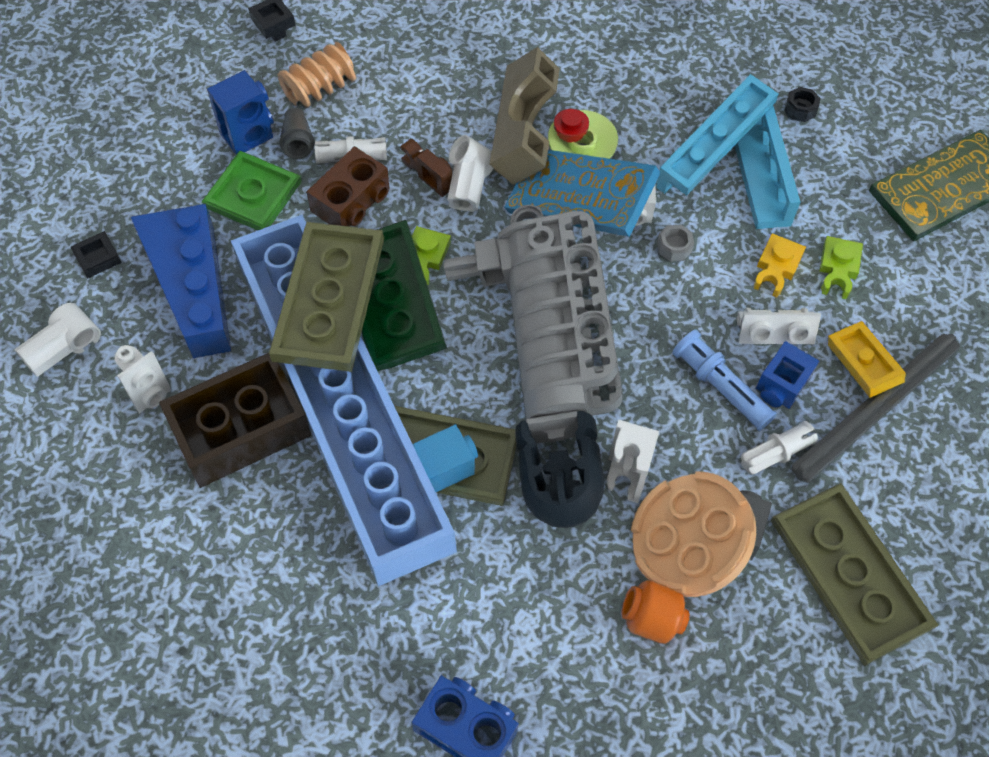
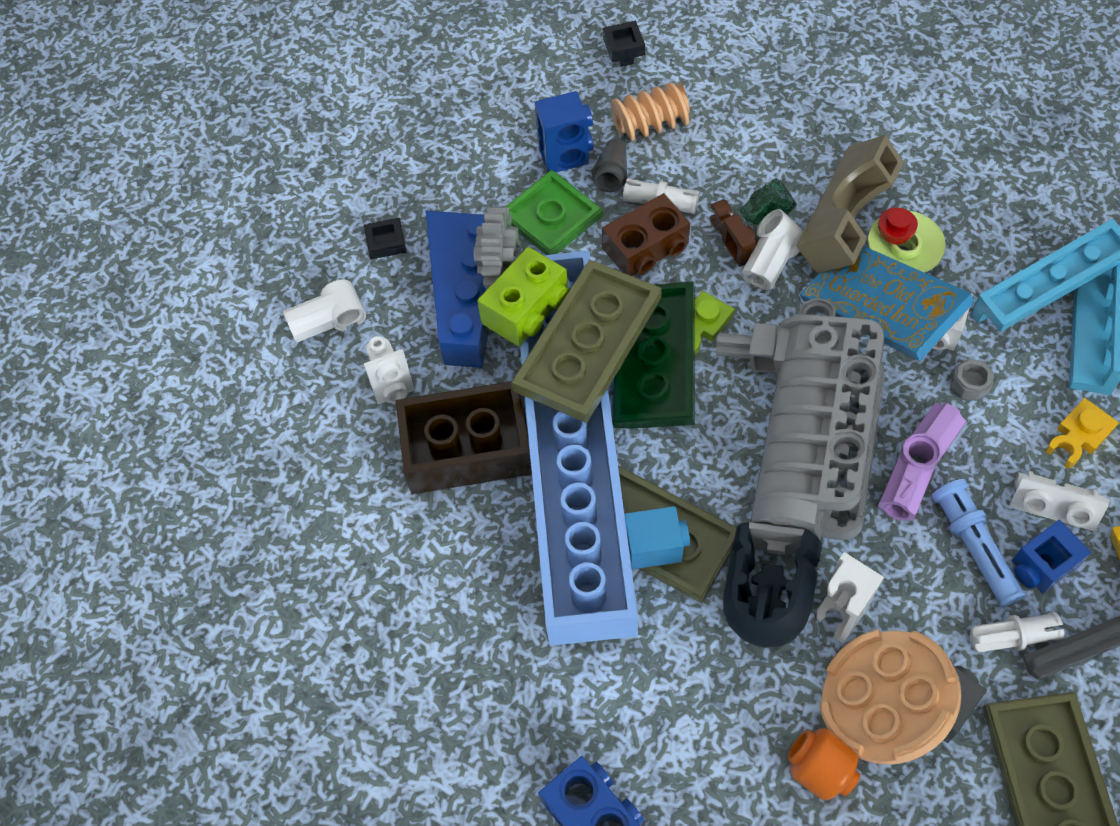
camera: 25 degrees right, 0 degrees up
(215, 235) = (496, 244): none -> light grey gear
(254, 272) = (523, 296): none -> lime brick
(449, 130) = (767, 199): none -> clear green bracket
(651, 341) = (910, 478): none -> lavender piece

